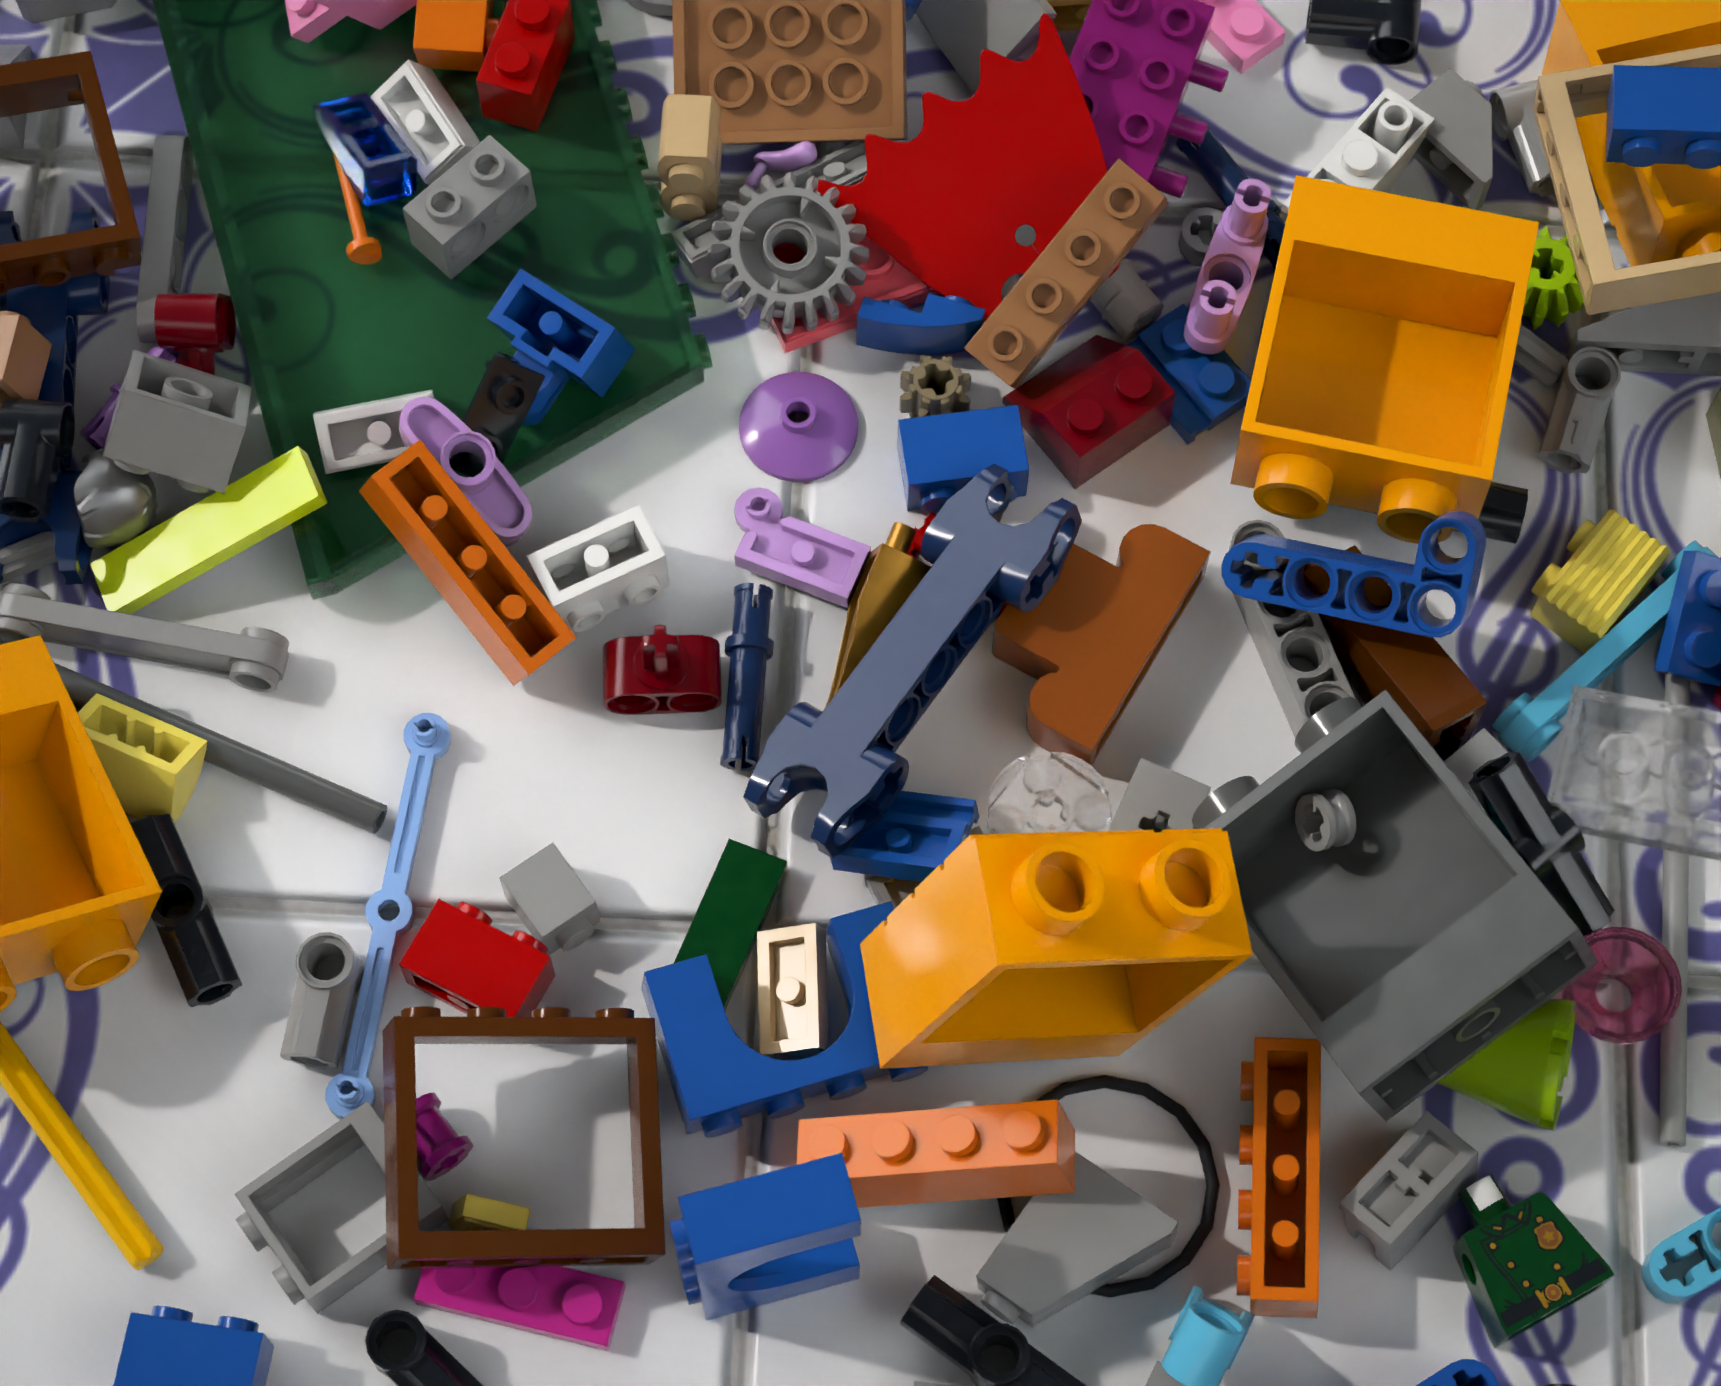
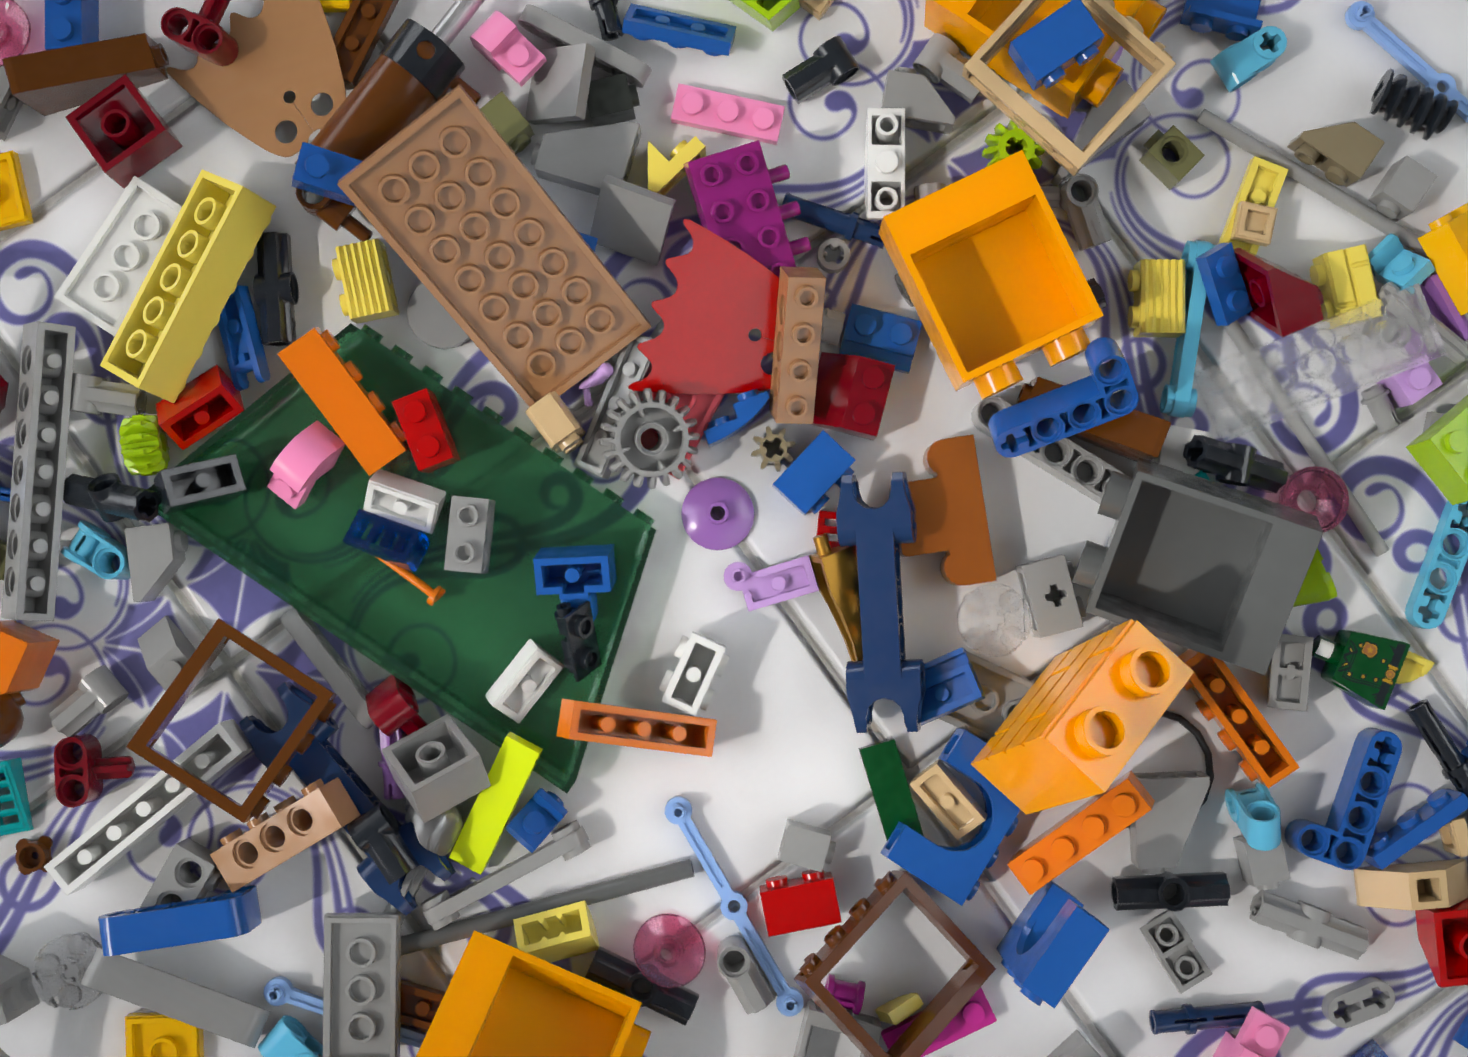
camera: 35 degrees left, 20 degrees up
(241, 598) = (537, 819): none -> blue bracket
(265, 873) = (680, 939): none -> clear pink dish
(492, 491) = (574, 681): lavender connector -> none
(661, 674) = (763, 696): dark red beam -> none
(748, 654) = (792, 651): dark blue pin -> none
(1228, 269) = (860, 257): lavender connector -> none
(1325, 820) = (1139, 540): light grey bush -> none
(1590, 1328) = (1413, 668): none -> light yellow tile

